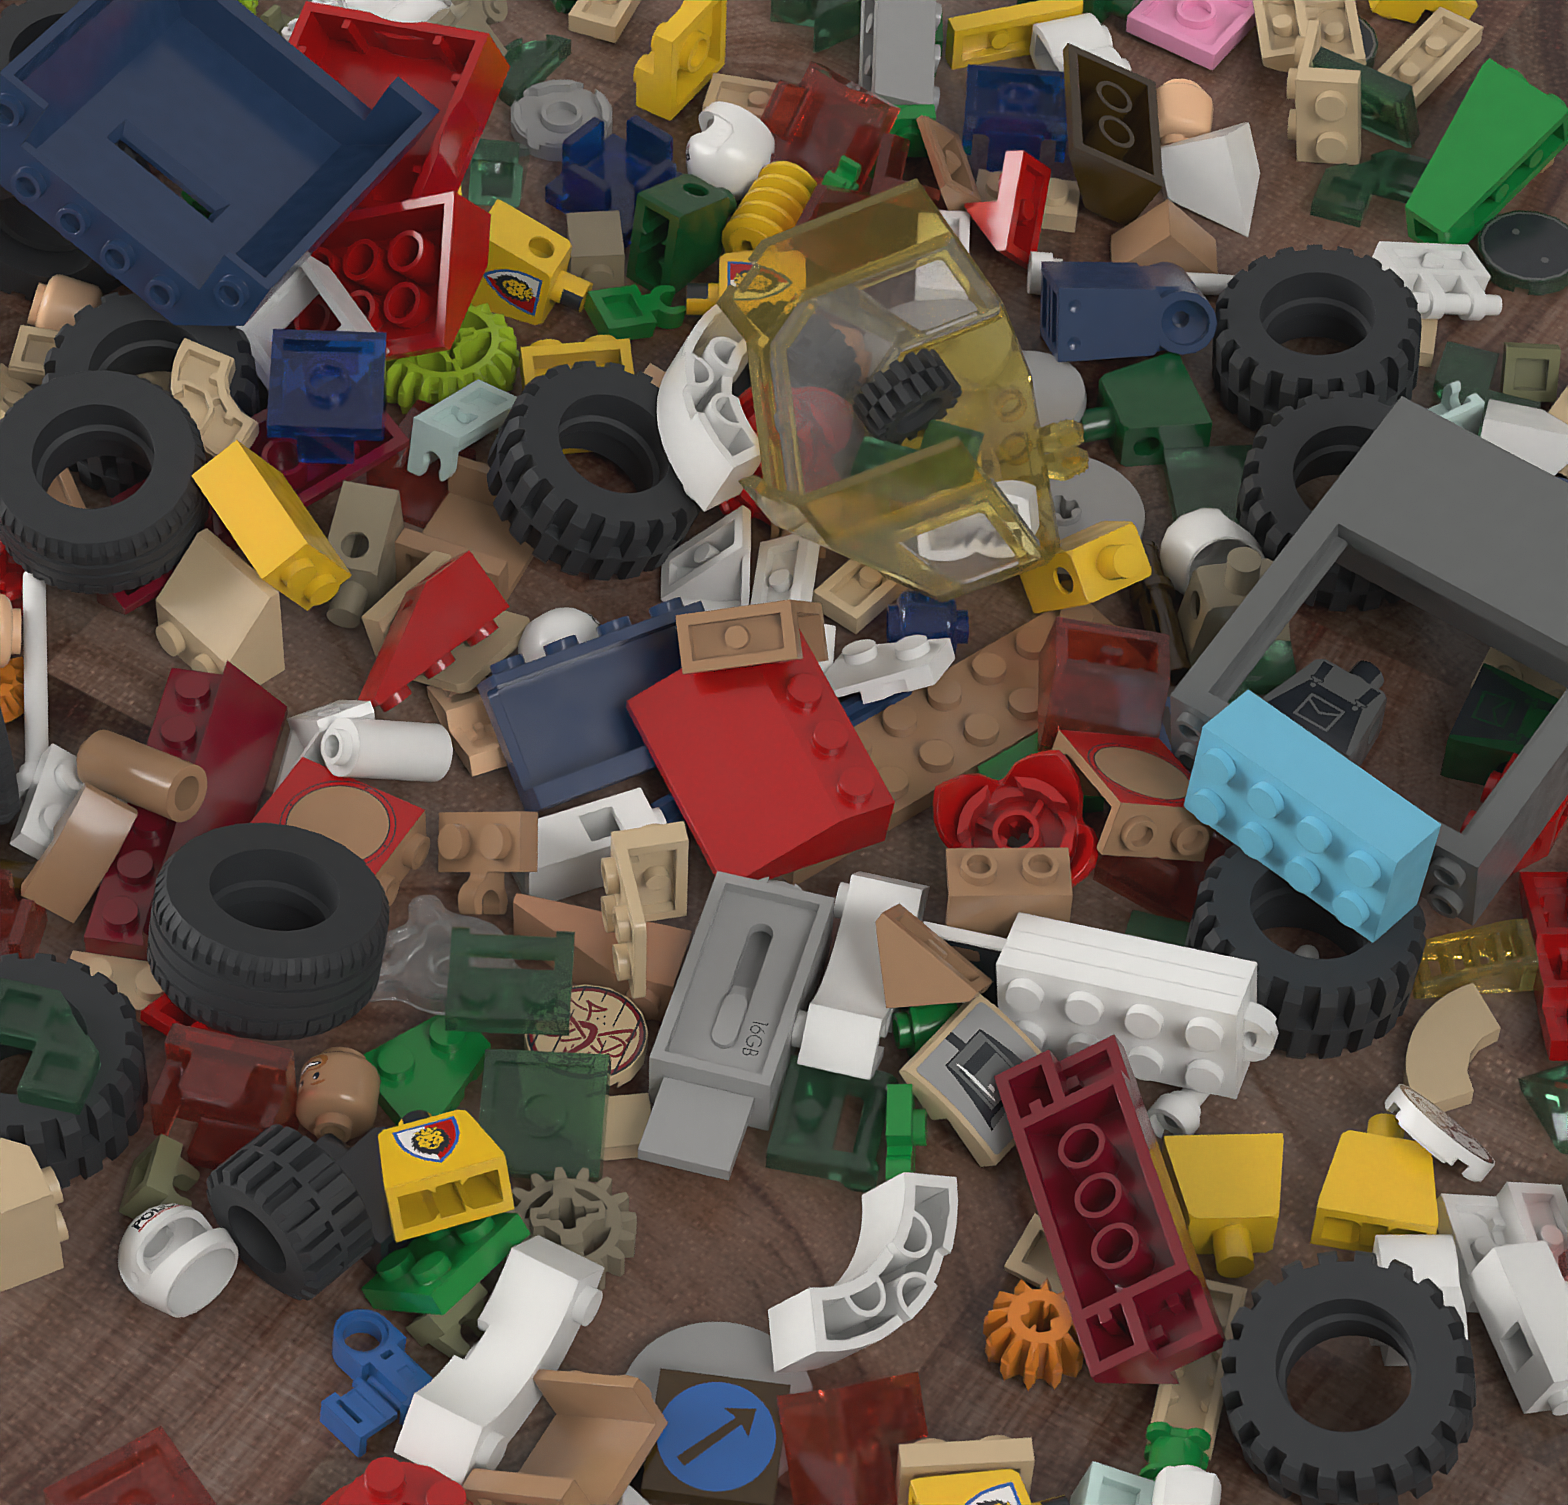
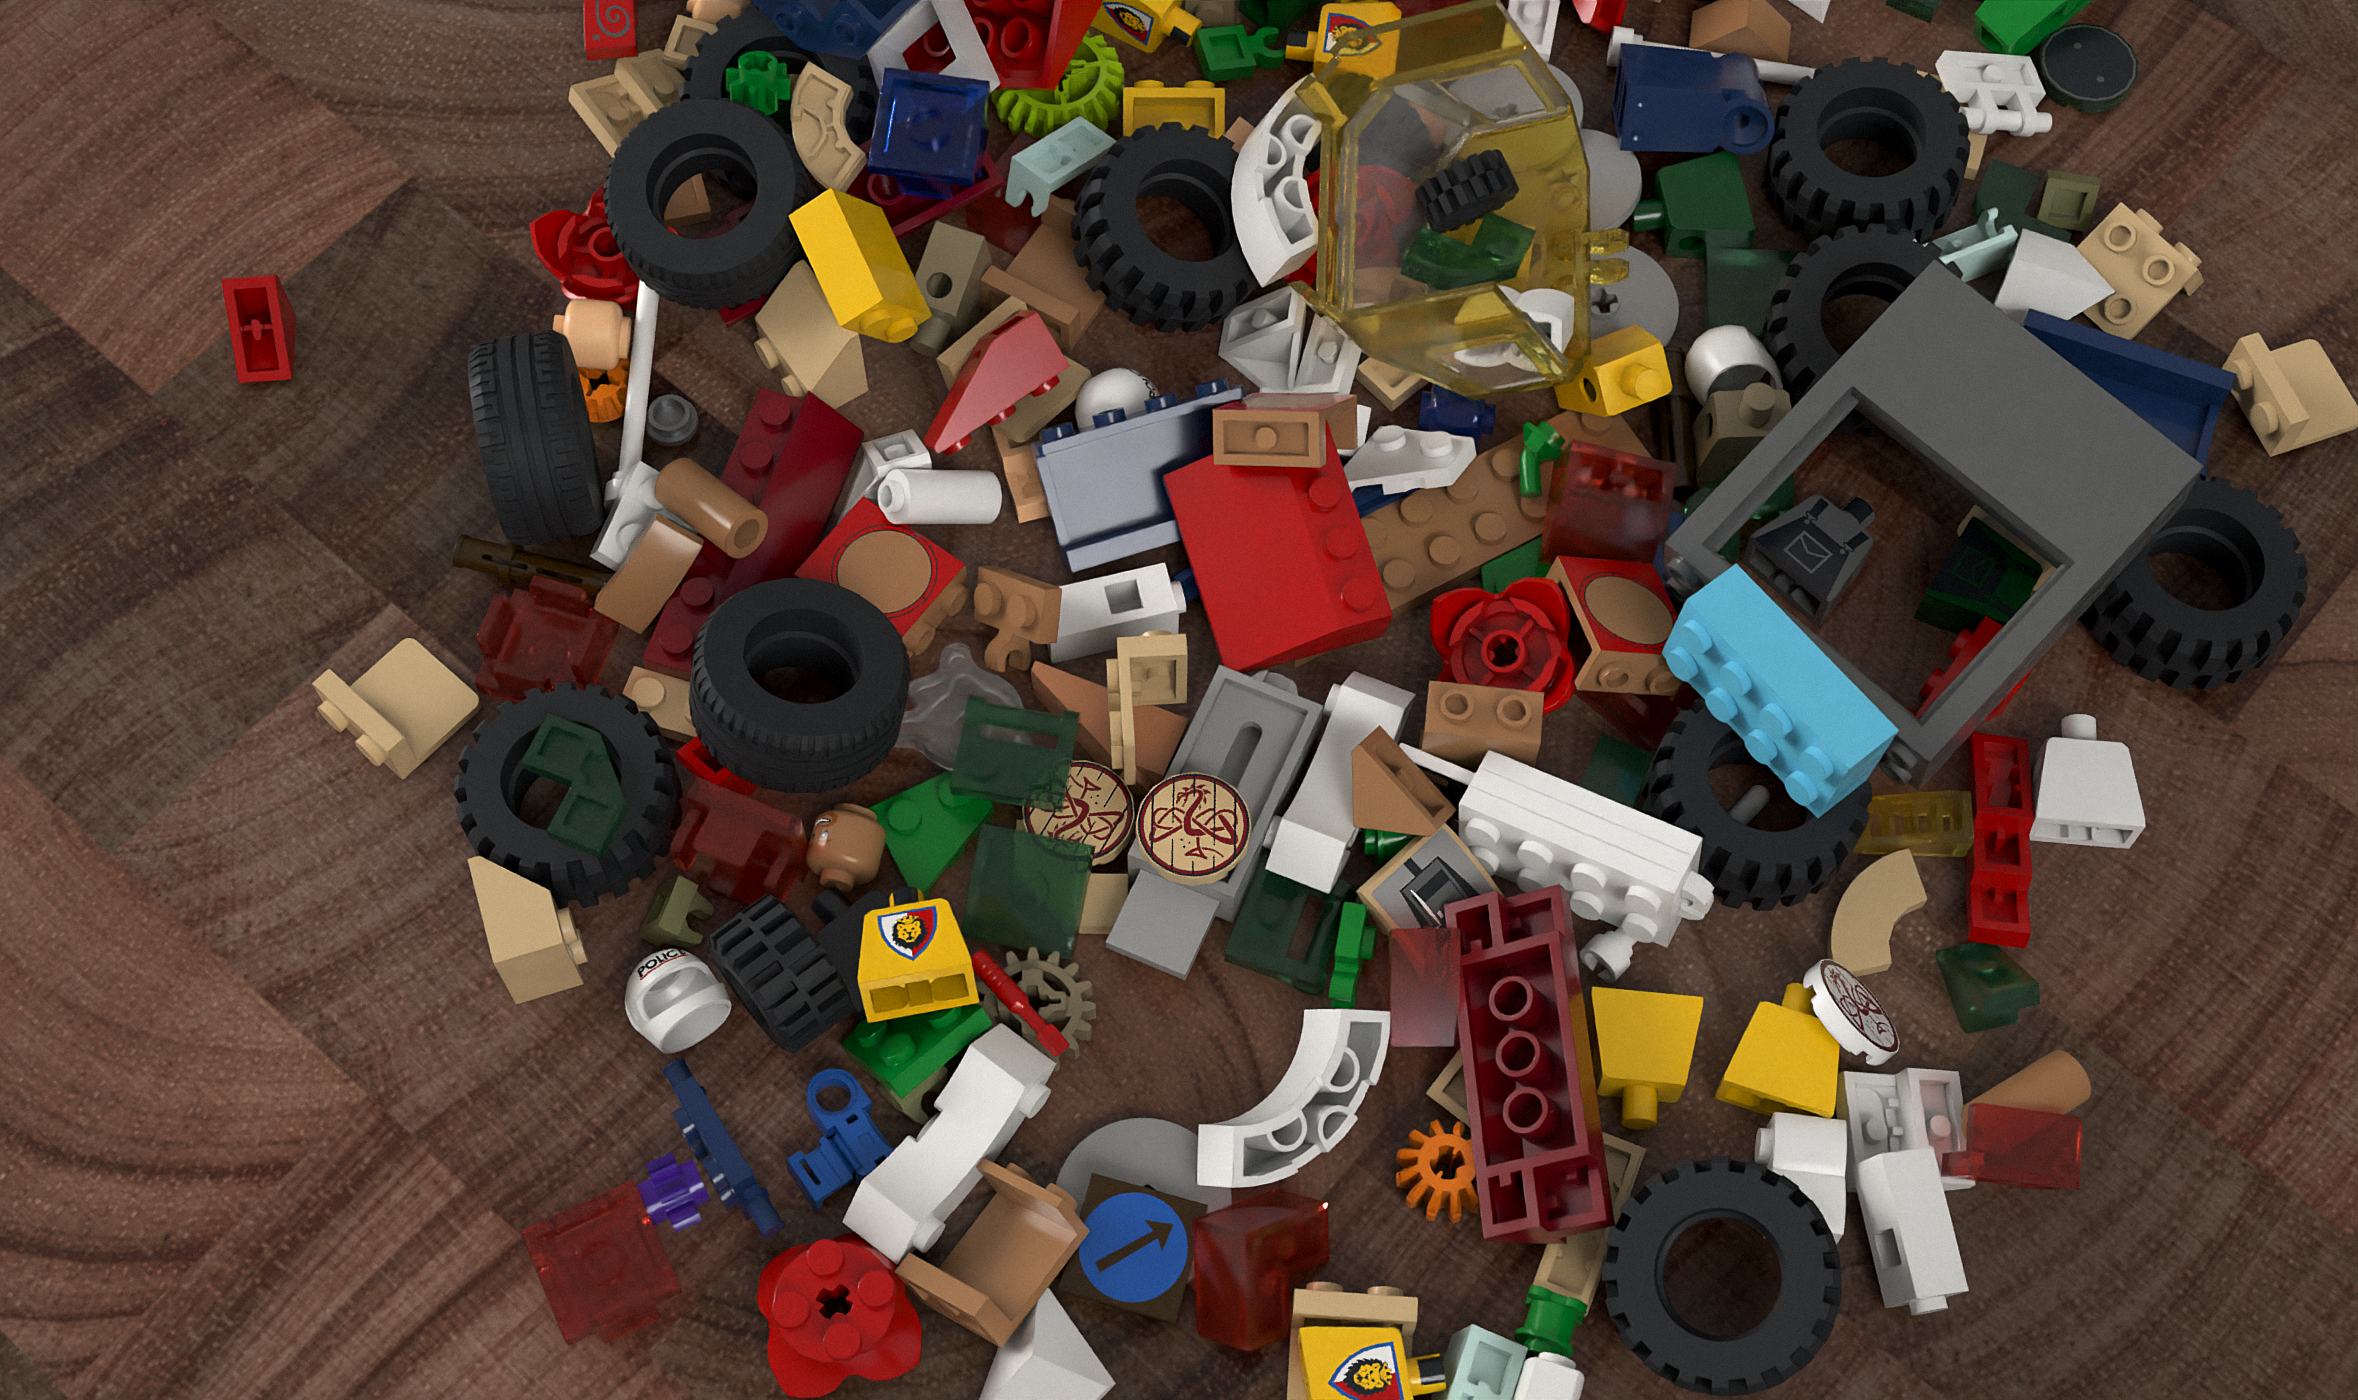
camera: 10 degrees right, 15 degrees up
(74, 713) = (671, 420): none -> flat silver plate
(135, 354) = (759, 81): none -> green gear
(207, 1442) = (673, 1192): none -> dark purple gear
(251, 1392) = (725, 1164): none -> dark blue plate
(554, 1213) = (1017, 1001): none -> red piece
(717, 1022) = (1193, 828): none -> tile
(988, 1151) = (1424, 986): none -> clear red panel
(1023, 639) = (1541, 445): none -> green plate

